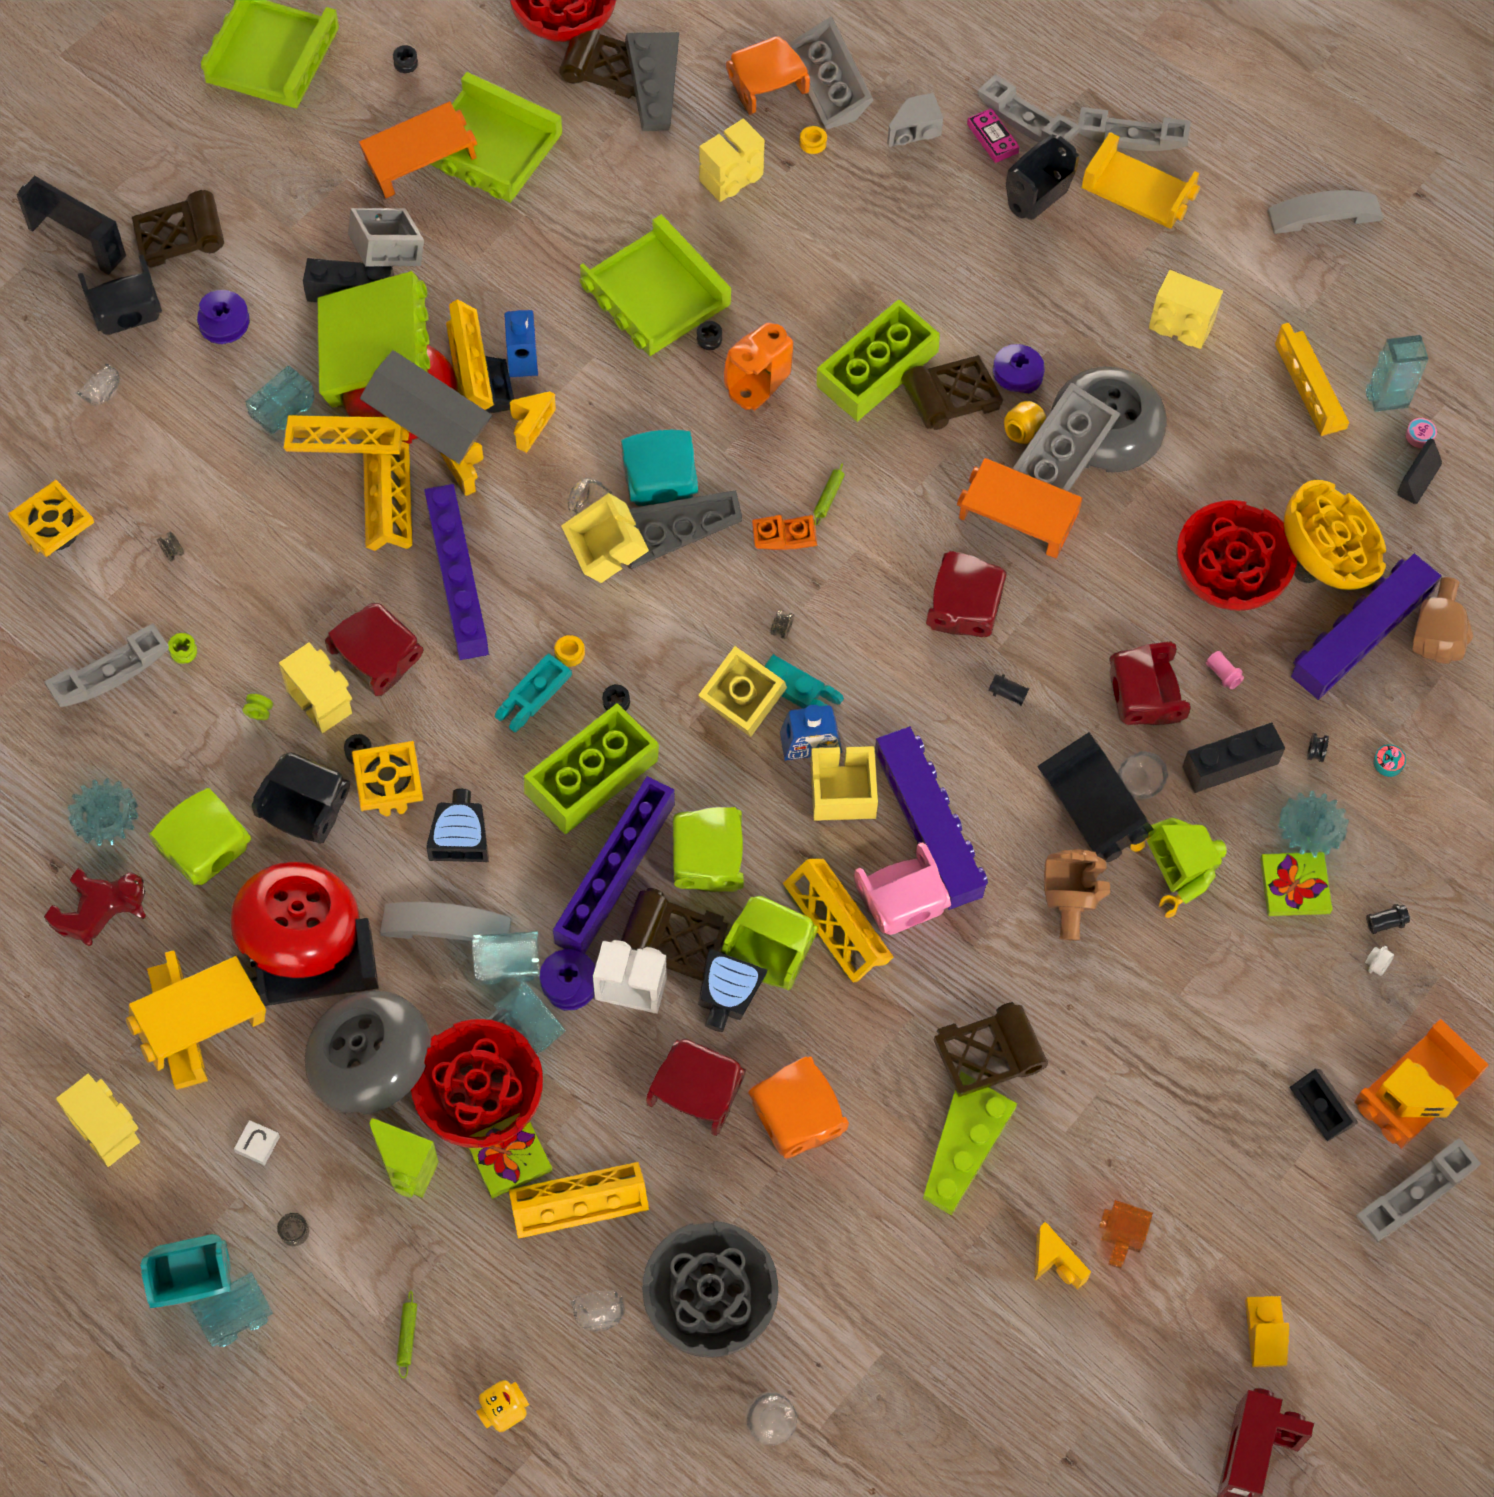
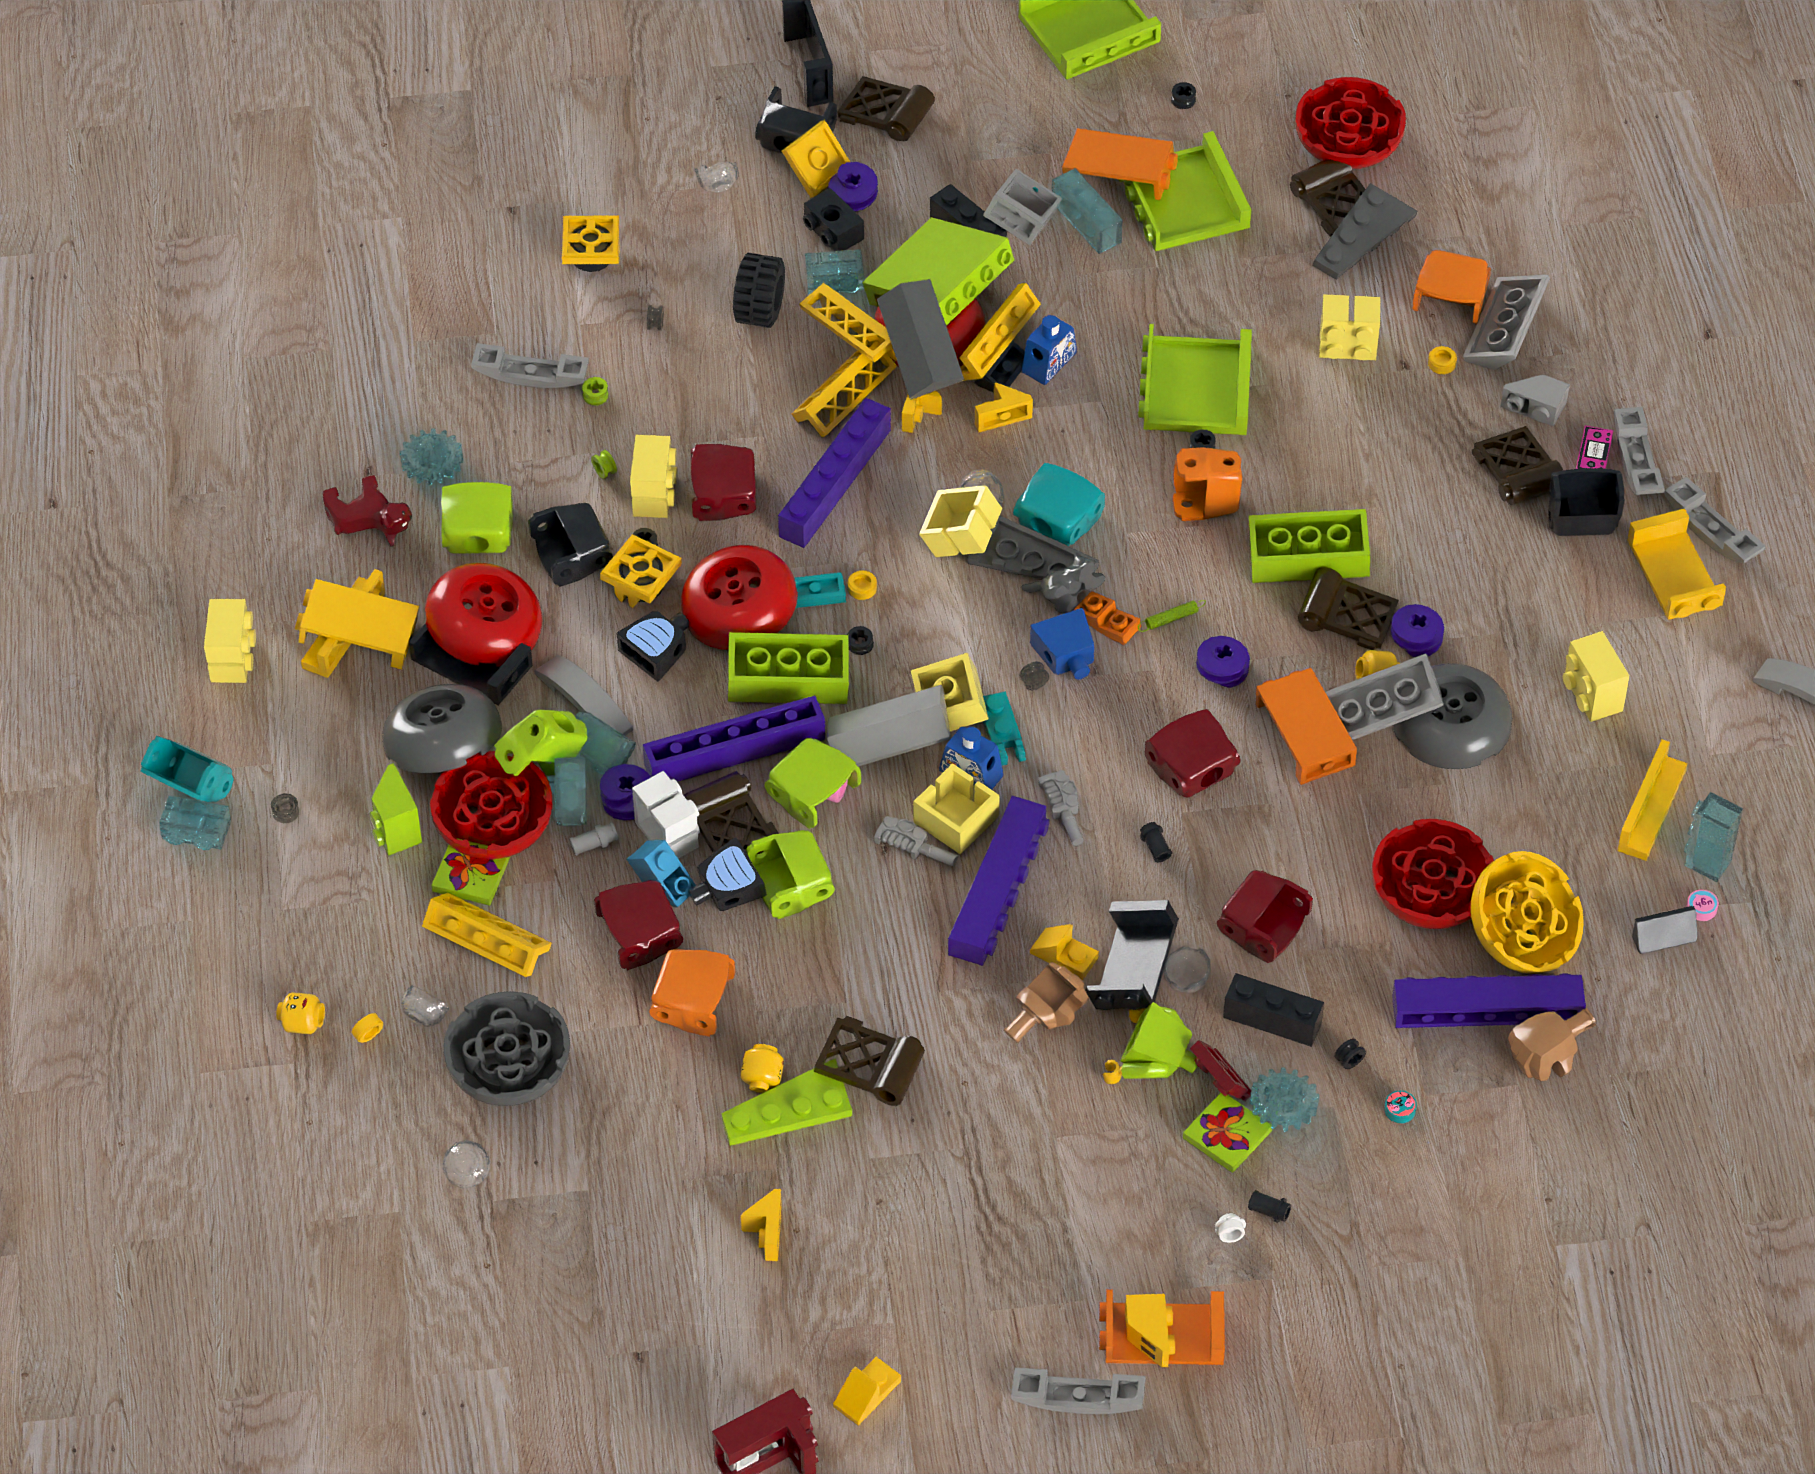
camera: 45 degrees right, 10 degrees down
(171, 312) = (815, 158): none -> yellow tile
(243, 460) = (759, 290): none -> black tyre
(250, 354) = (833, 221): none -> black brick
(256, 1142) = (317, 738): white tile -> none
(406, 1334) = (288, 927): lime piece -> none
(433, 205) = (1088, 211): none -> clear light blue brick
(478, 976) = (541, 739): none -> lime piece
(491, 772) = (726, 604): none -> red brick
(569, 1369) = (367, 1028): none -> yellow tile
(584, 1037) = (594, 838): none -> light grey pin
(663, 1023) = (658, 862): none -> dark azure slope
(726, 754) = (891, 726): none -> light grey slope
(733, 532) = (1064, 585): none -> dark grey animal
(779, 579) = (1064, 643): none -> blue torso
(824, 836) = (912, 839): none -> light grey piece
(845, 911) = (865, 896): yellow fence -> none
(901, 706) = (1064, 802): none -> light grey piece
(904, 892) = (919, 915): bright pink piece -> none
(907, 501) = (1223, 661): none -> dark purple piece
(917, 1128) = (762, 1067): none -> yellow head
(973, 190) = (1528, 478): none -> dark brown piece
(1032, 835) = (1058, 946): none -> yellow slope
(1125, 1228) = (836, 1244): clear orange brick -> none
(1230, 676) = (1339, 956): bright pink pin -> none
(1237, 837) = (1226, 1077): none -> dark red plate
(1323, 1104) = (1080, 1287): black slope -> none

